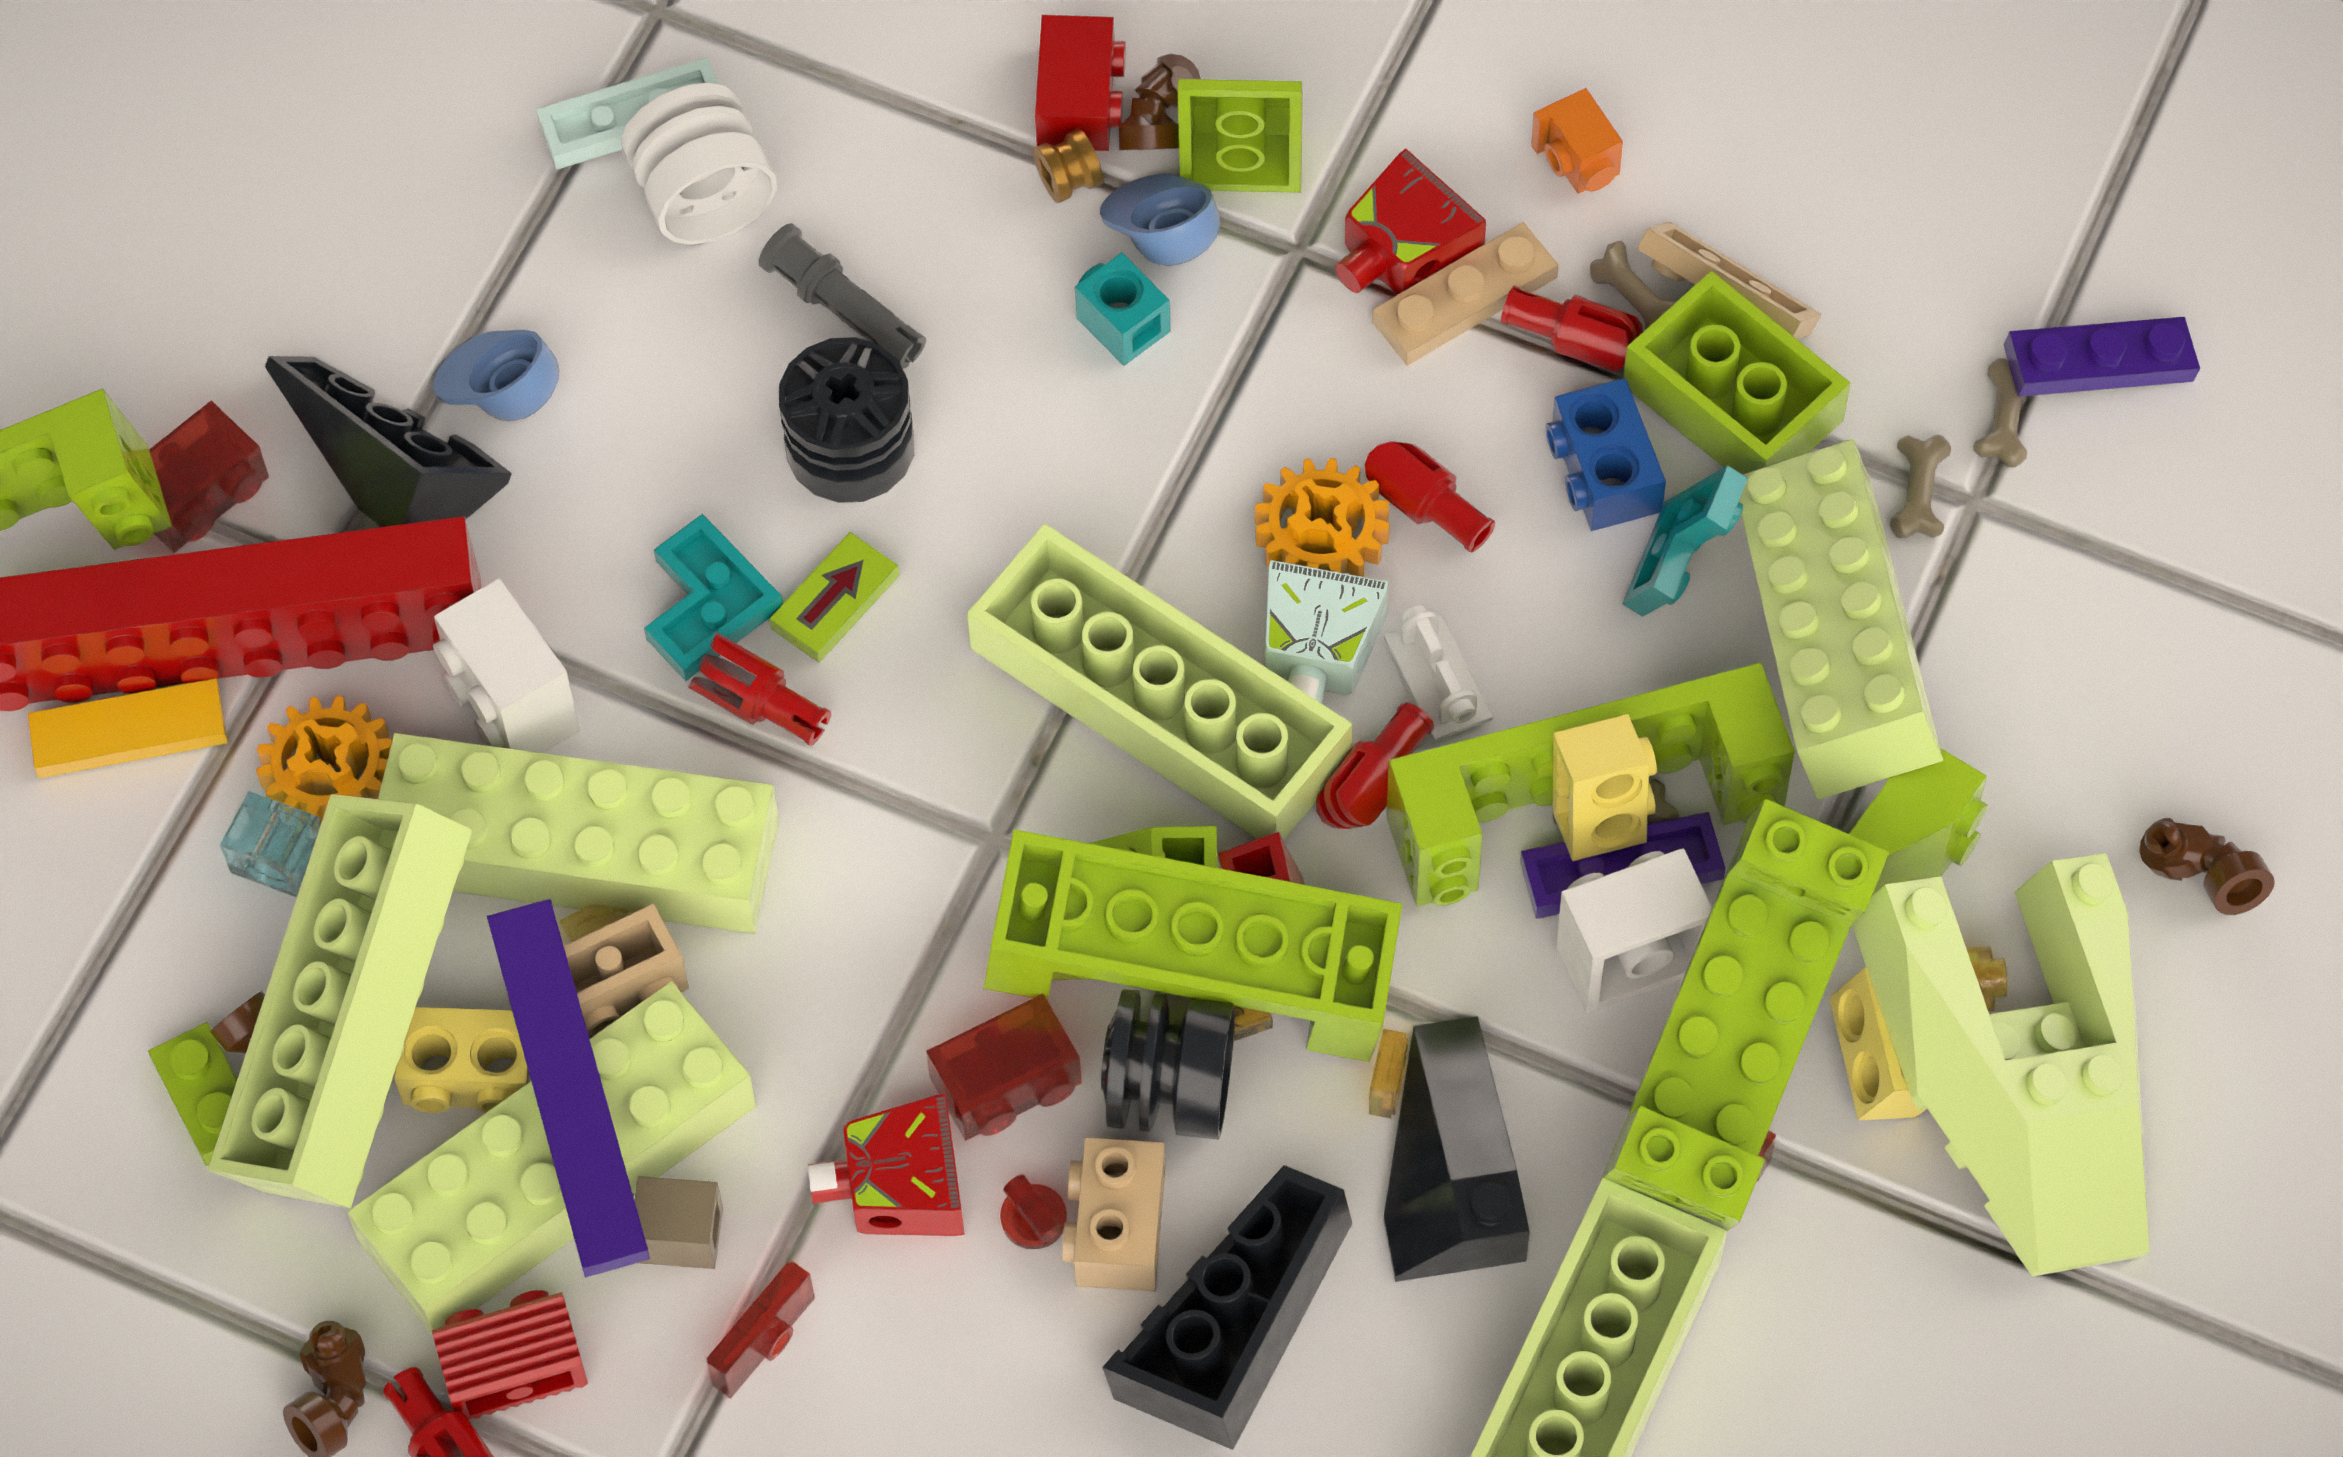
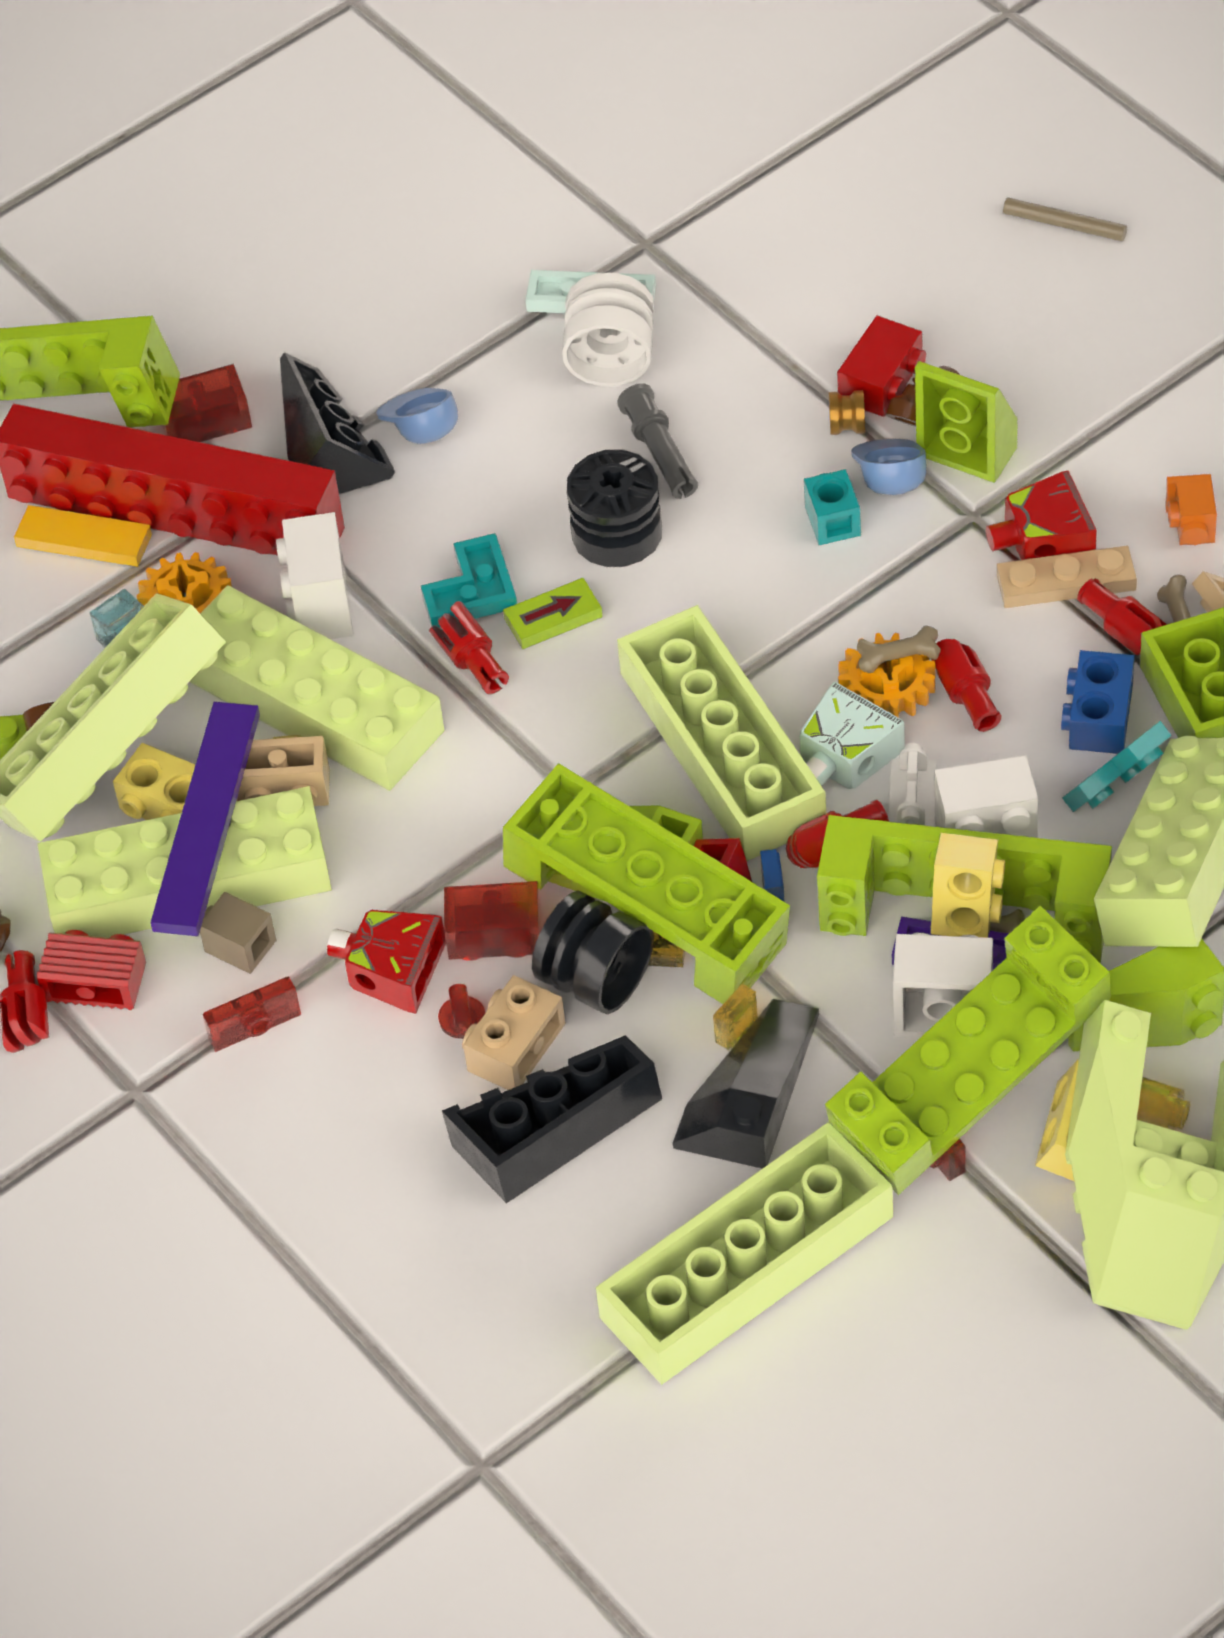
camera: 30 degrees right, 10 degrees down
(1308, 502) = (921, 644): none -> dark tan piece
(1330, 862) = (772, 873): none -> blue tile
(1560, 659) = (988, 797): none -> white brick

